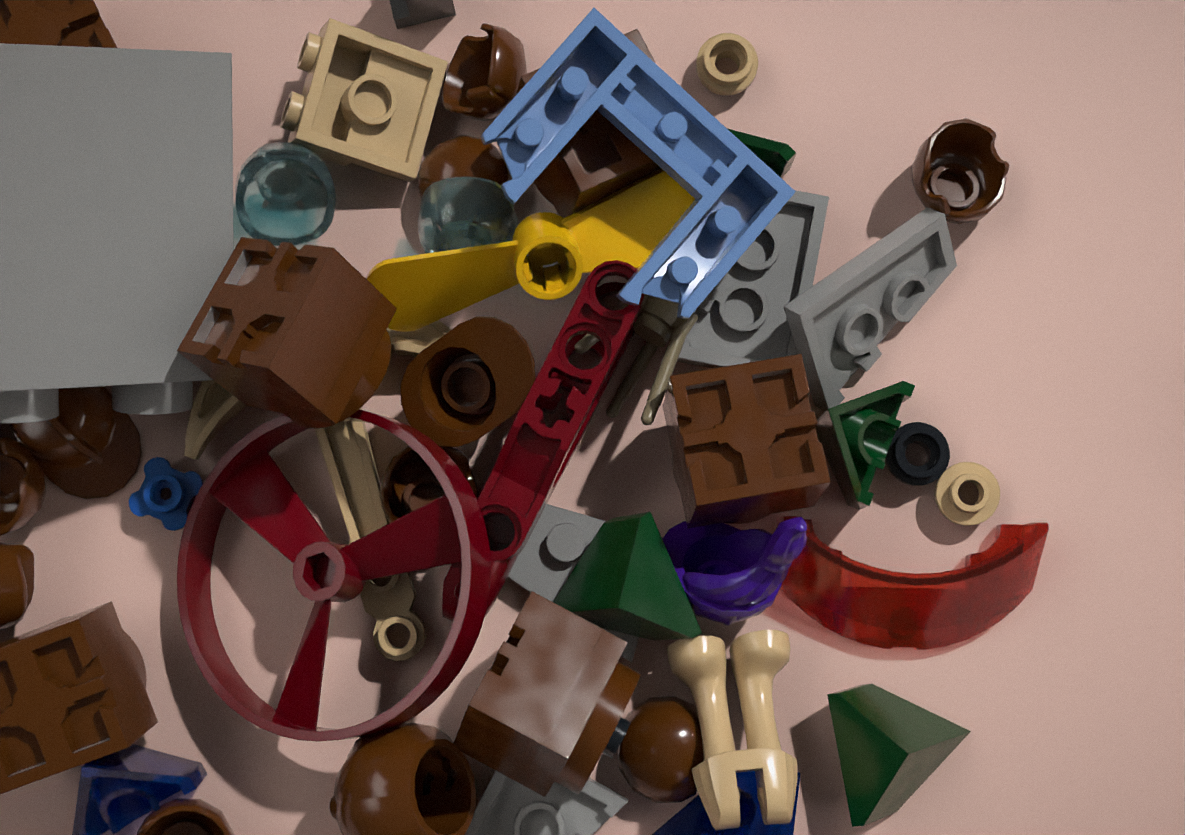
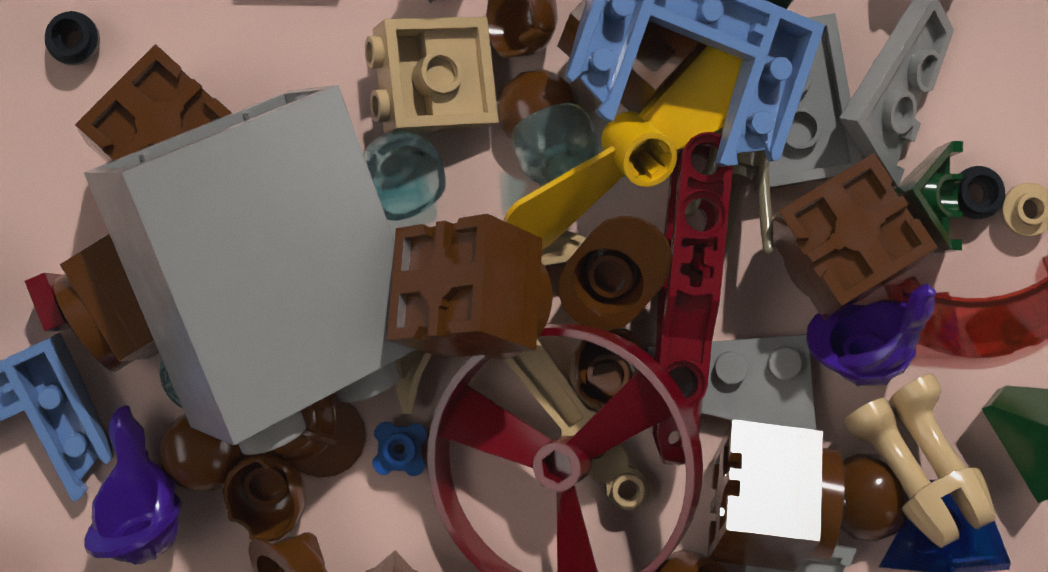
camera: 25 degrees left, 5 degrees up
(630, 583) = (797, 381): dark green slope -> none

